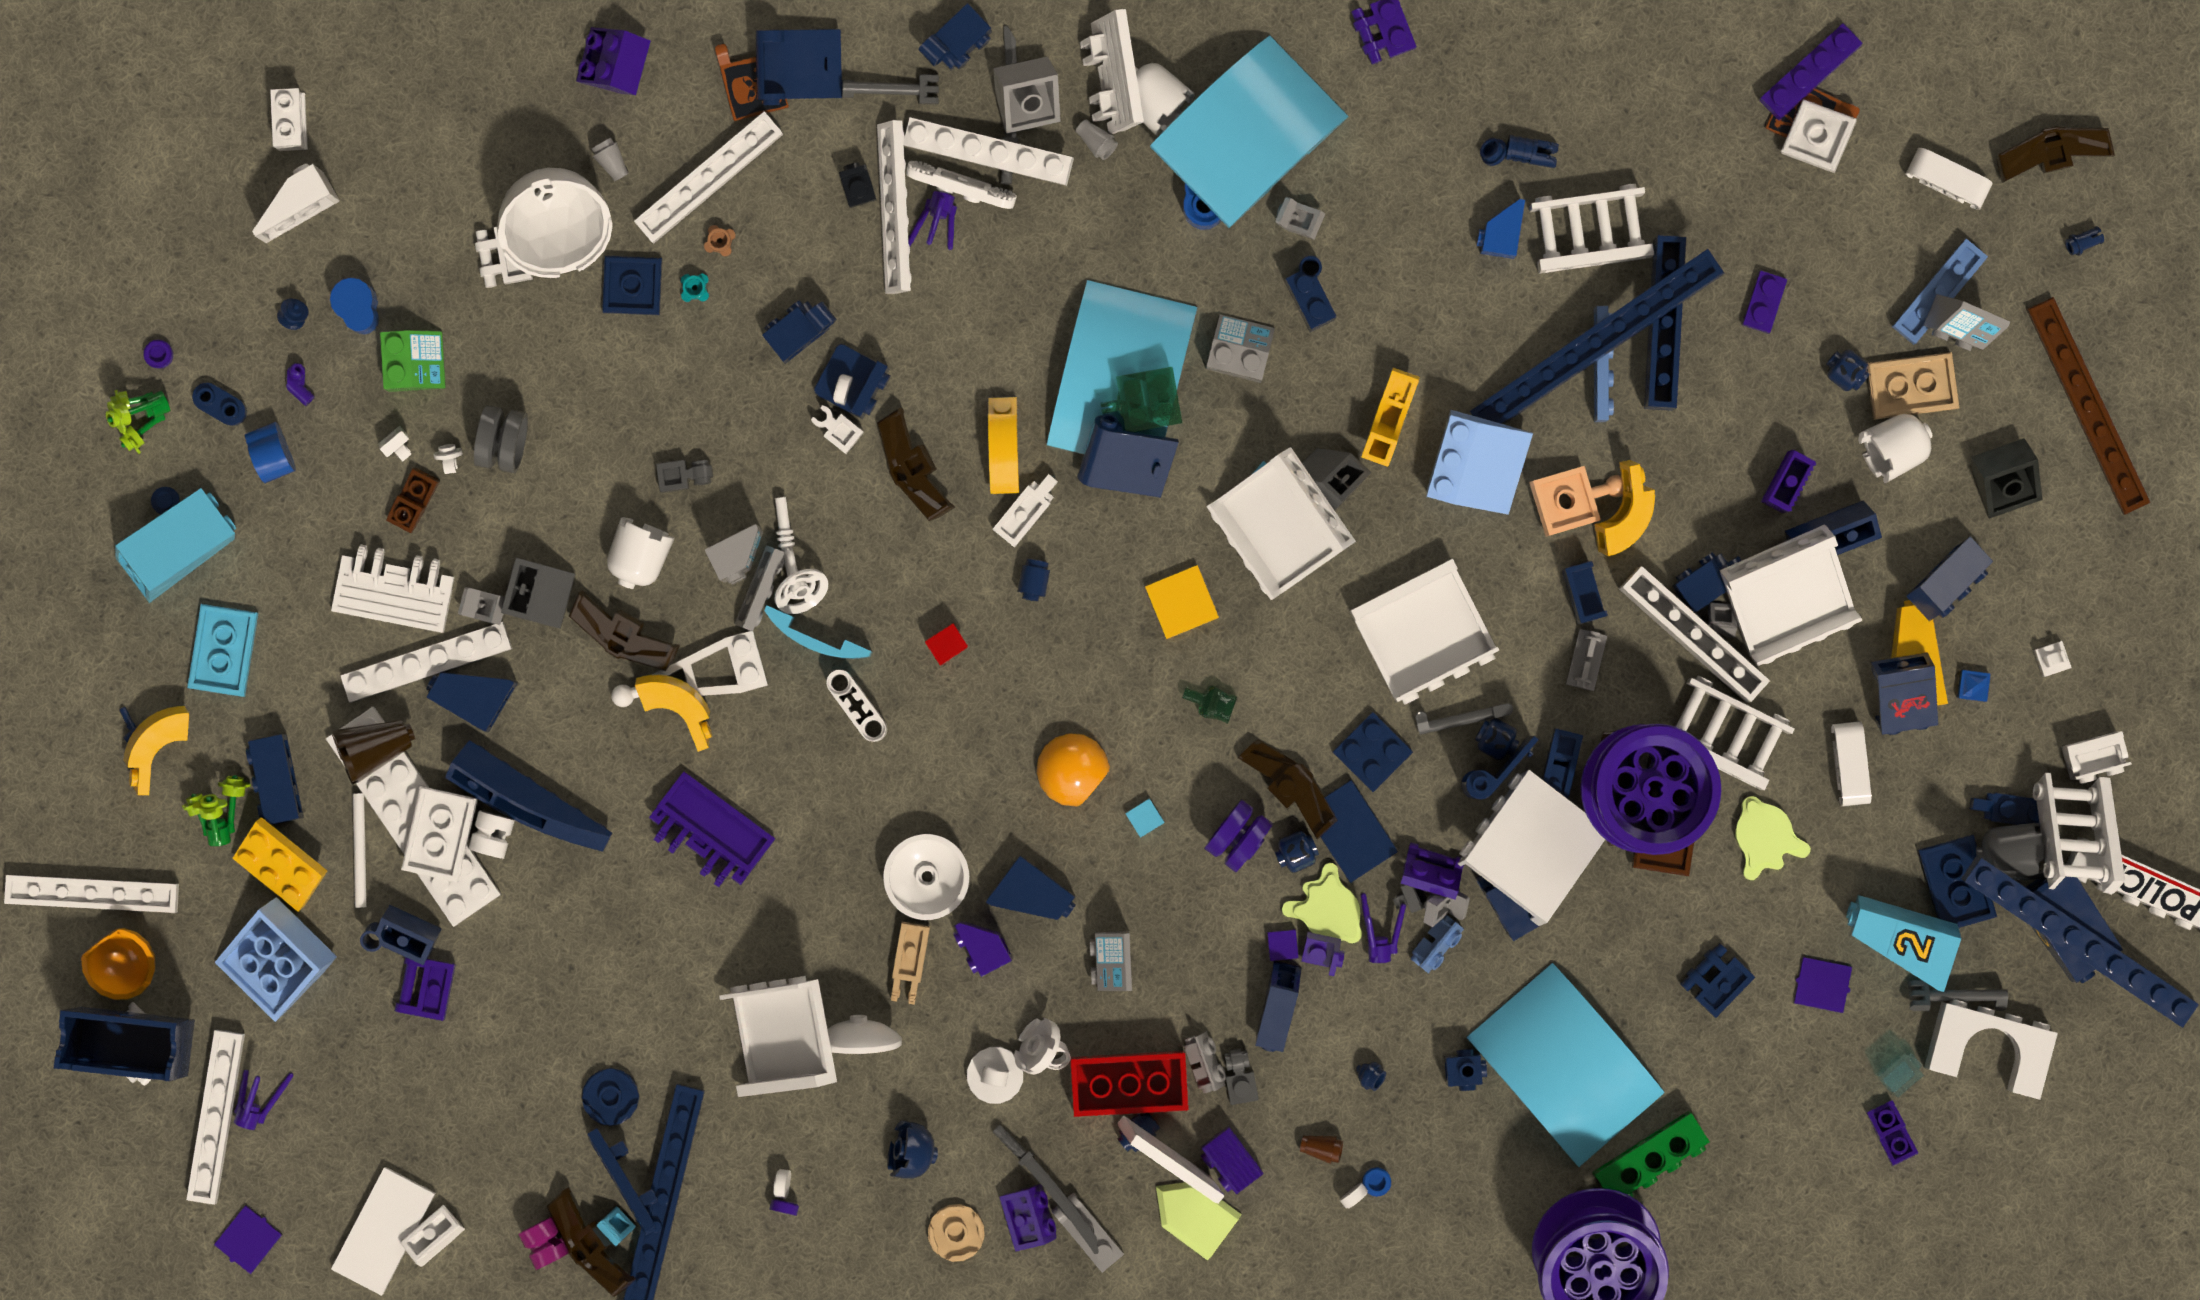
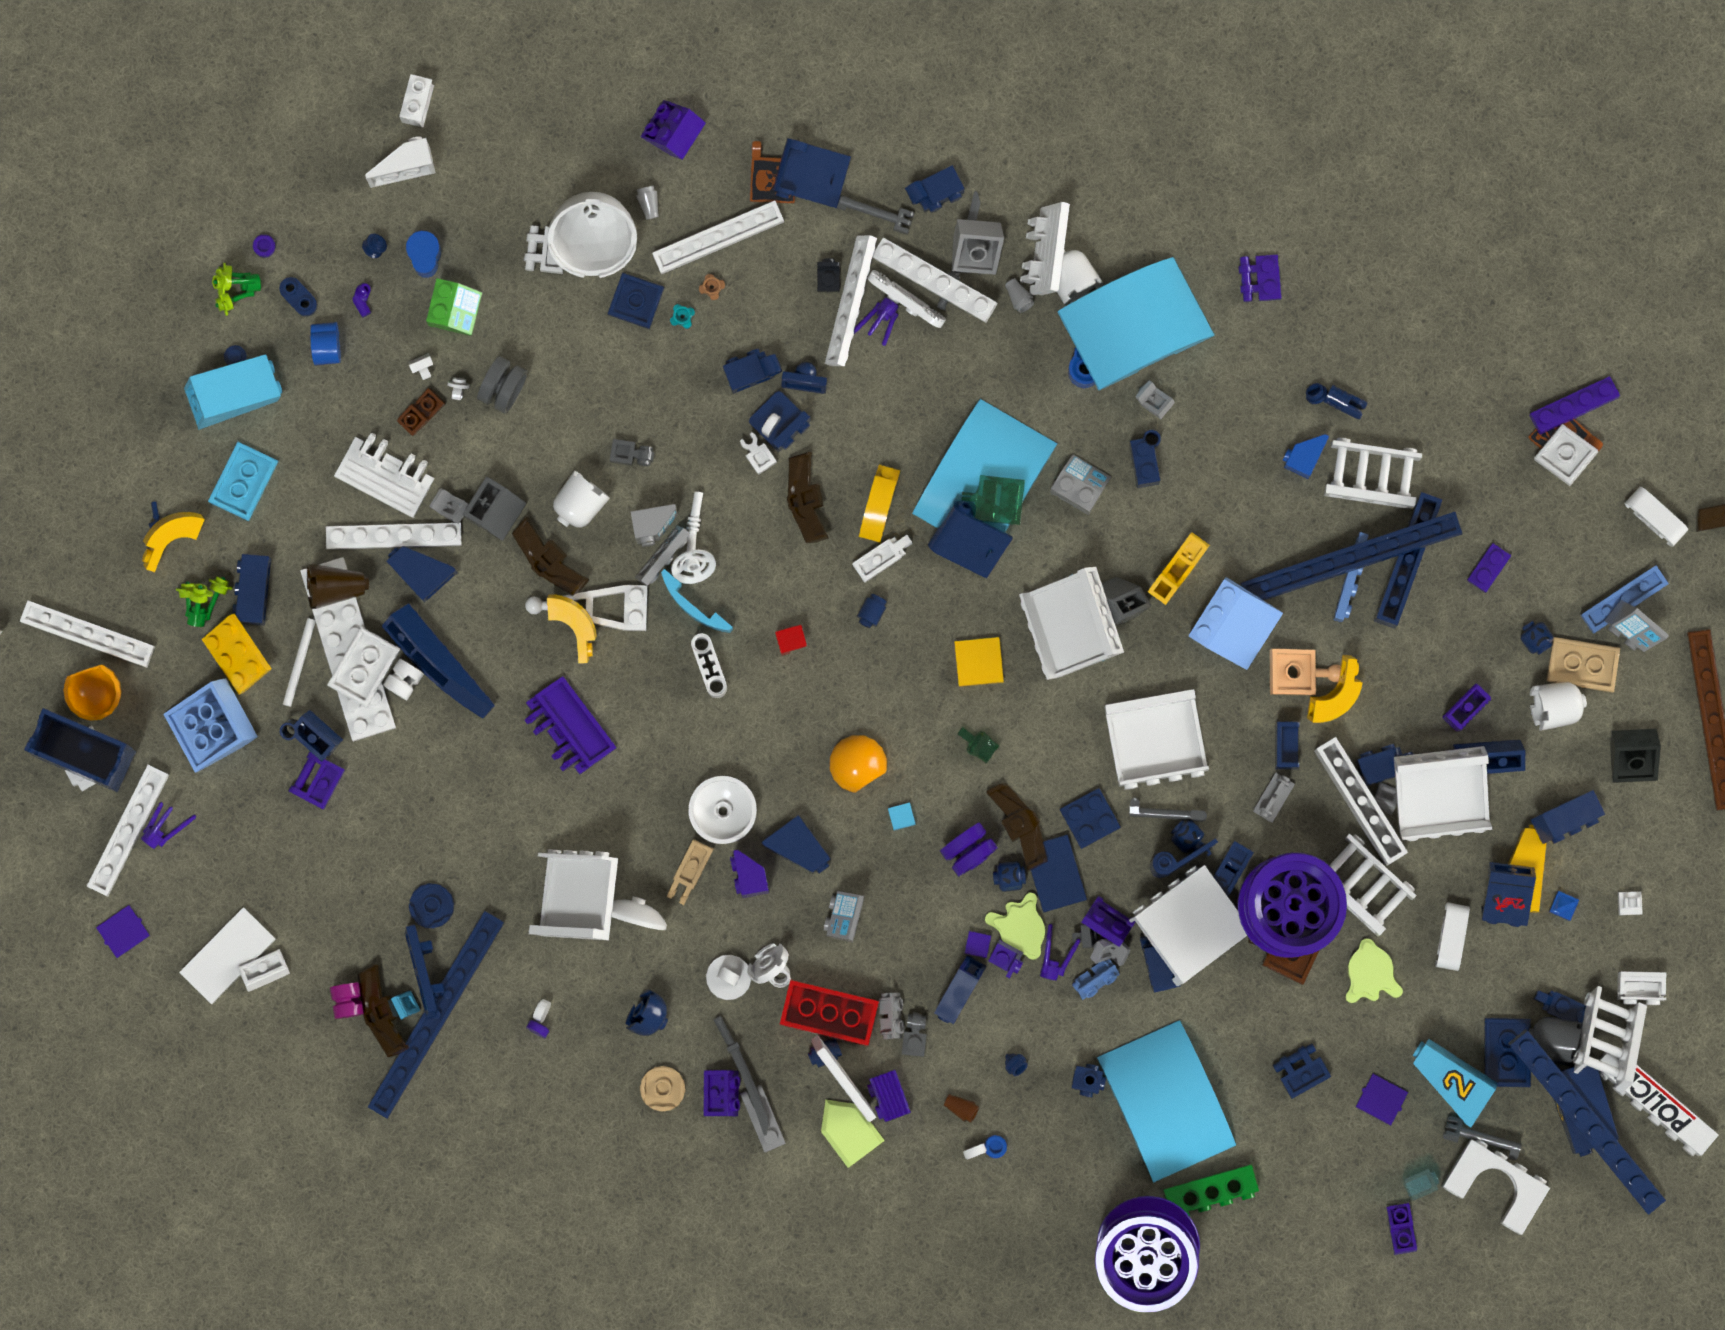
camera: 10 degrees right, 5 degrees down
(866, 320) = (804, 379): none -> dark blue tile

